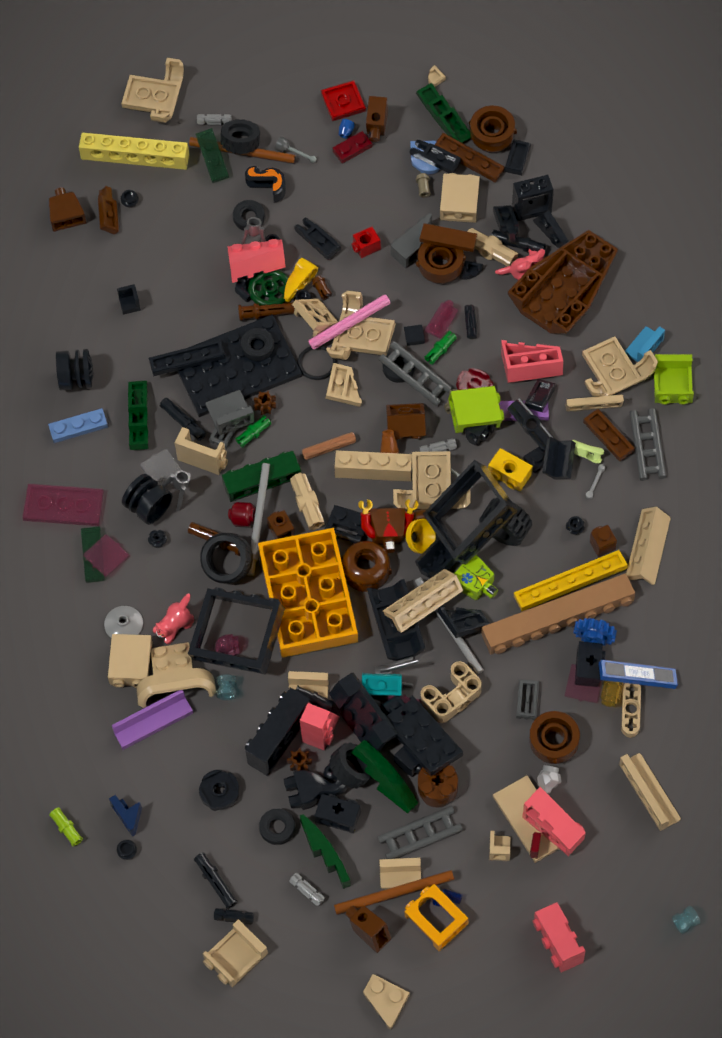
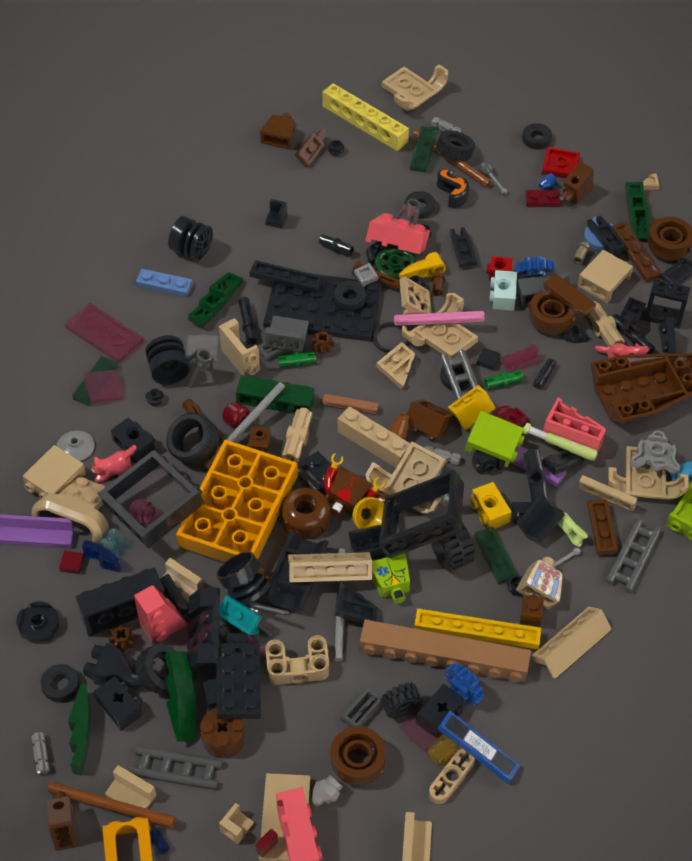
camera: 30 degrees right, 10 degrees down
(163, 580) = (131, 433): none -> black brick
(204, 724) = (71, 562): none -> dark red tile
(205, 299) = (336, 244): none -> black pin
(234, 703) = (106, 558): none -> clear blue slope
(256, 316) = (365, 274): none -> light grey tile
(303, 93) = (536, 128): none -> black tyre
(364, 651) = (243, 577): none -> black wheel
(380, 252) = (504, 290): none -> light aqua brick
(397, 224) = (535, 266): none -> blue gear
(435, 390) = (469, 406): none -> yellow panel
(537, 378) = (571, 446): none -> yellowish green piece
(541, 509) = (495, 555): none -> clear green tile
(556, 674) = (401, 700): none -> black tyre
(595, 511) = (542, 582): none -> tan torso
(612, 343) = (656, 453): none -> light grey tile

